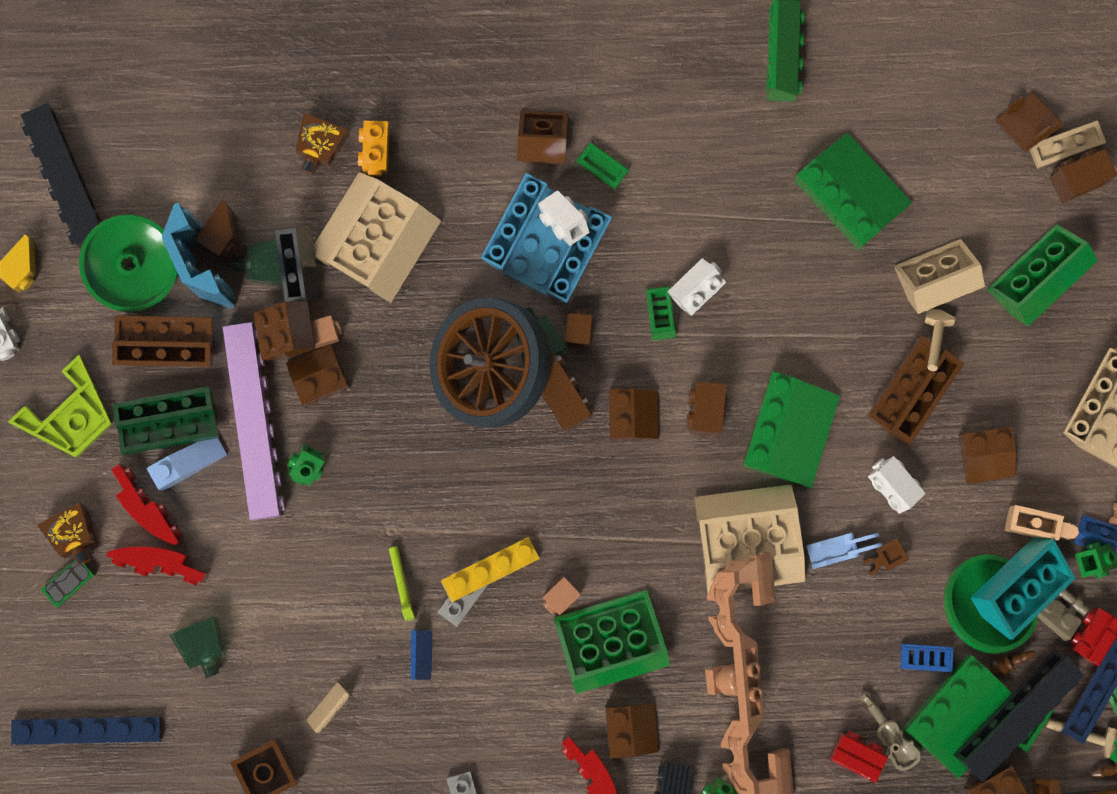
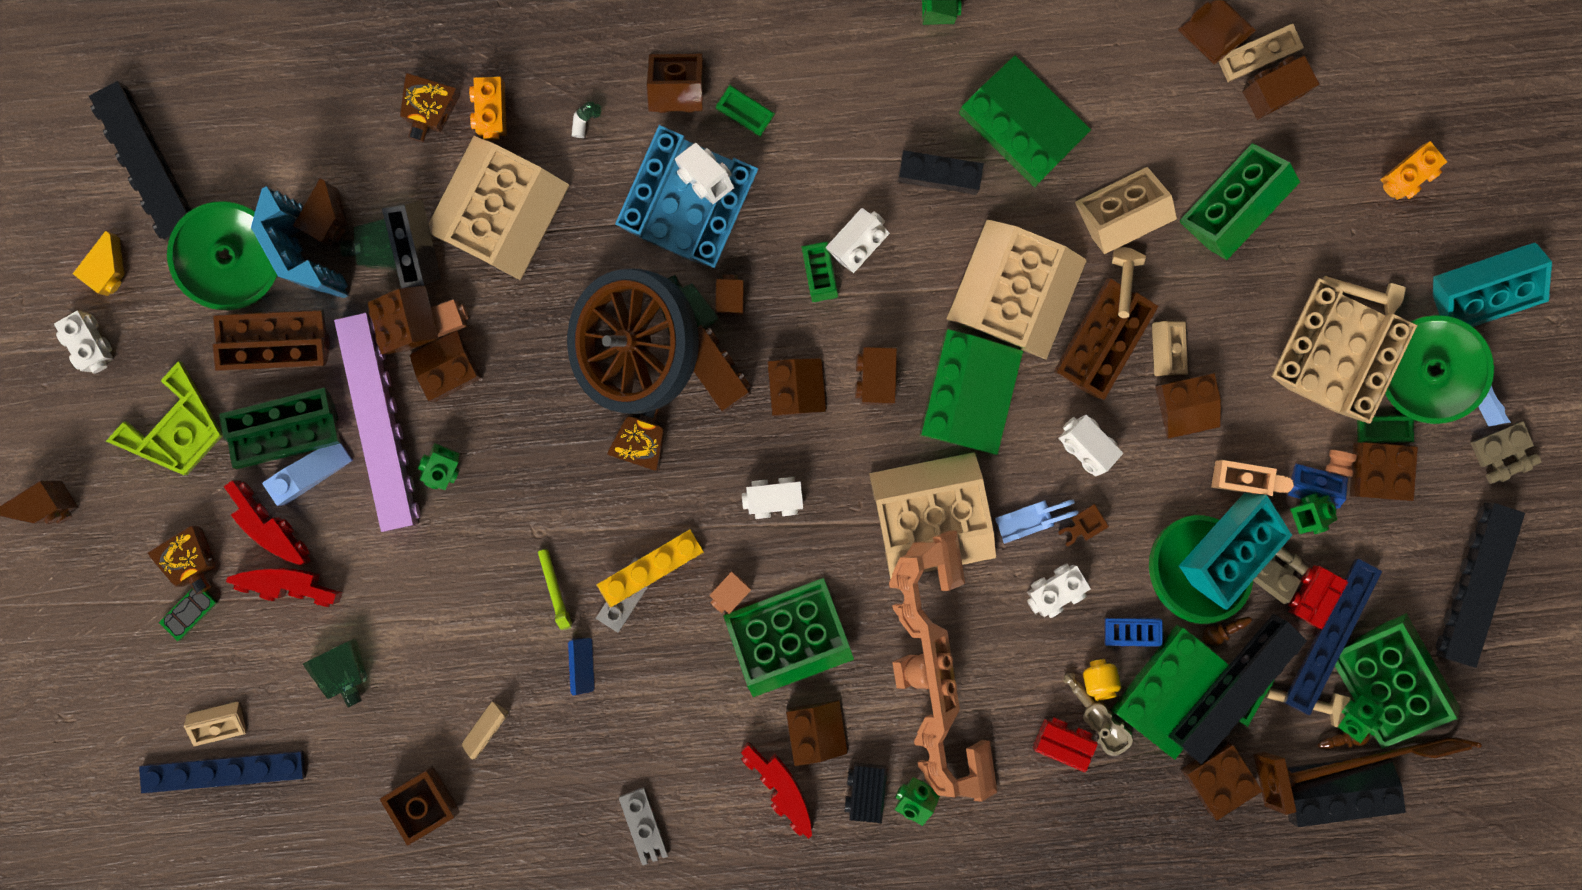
camera: 10 degrees left, 5 degrees up
(83, 686) = (215, 724): none -> tan slope
(458, 159) = (582, 115): none -> arm
(488, 453) = (639, 441): none -> reddish brown torso
(602, 513) = (764, 498): none -> white brick
(774, 231) = (940, 172): none -> black brick
(838, 338) = (1017, 287): none -> tan slope
(853, 618) = (1051, 594): none -> white brick
(895, 699) = (1101, 680): none -> yellow head
(973, 402) = (1169, 348): none -> tan slope

